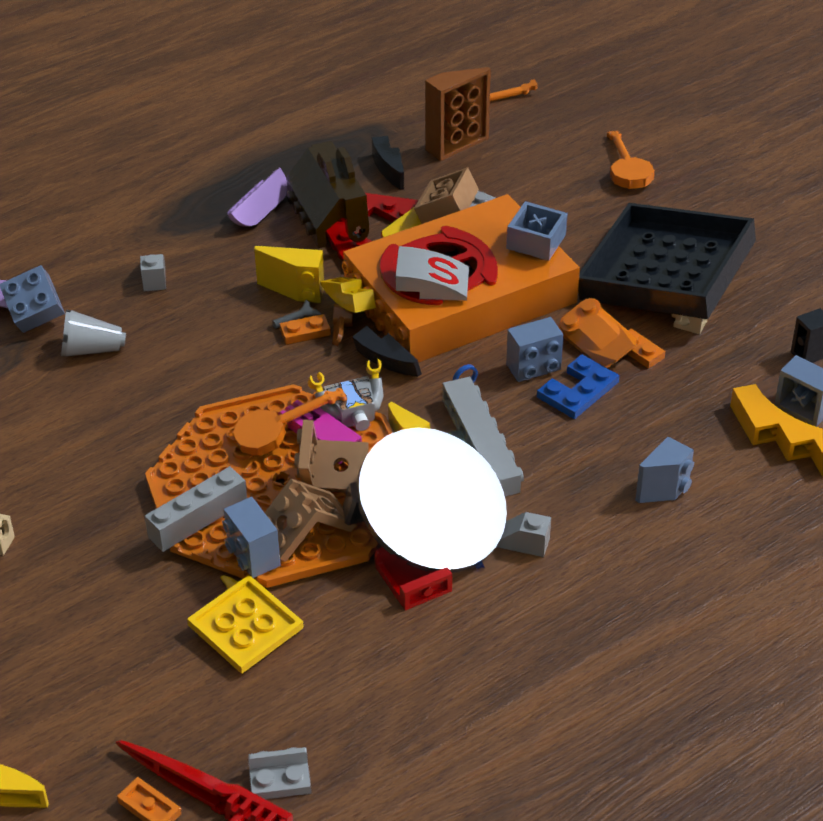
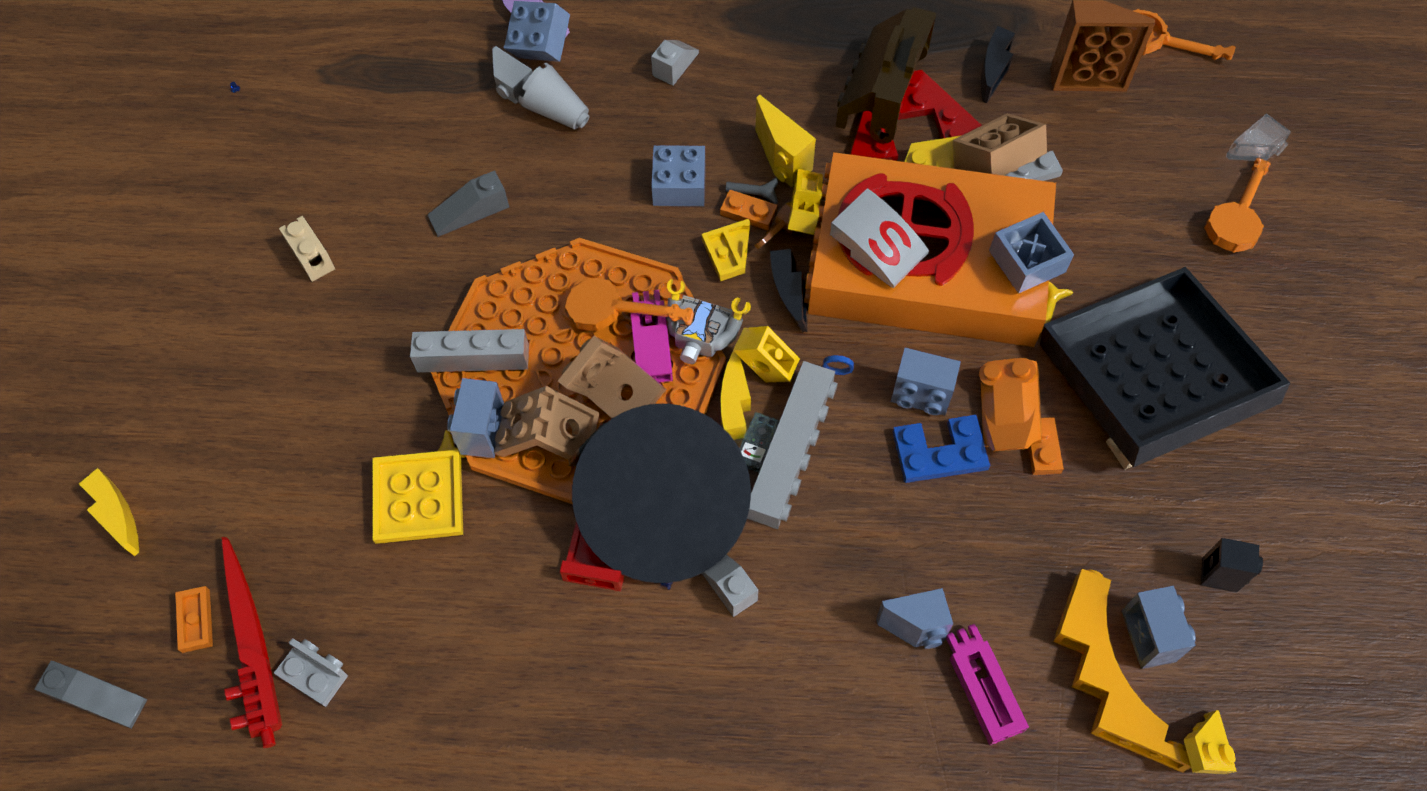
camera: 40 degrees right, 20 degrees up
(32, 341) = (509, 75): none -> light grey slope
(88, 433) = (469, 204): none -> dark grey slope
(235, 332) = (678, 176): none -> sand blue brick
(259, 200) = (831, 37): lavender brick -> none
(316, 356) = (728, 248): none -> yellow wing
(414, 391) = (766, 354): none -> yellow brick
(601, 120) = (1260, 141): none -> clear slope
(739, 488) = (989, 697): none -> dark pink hinge

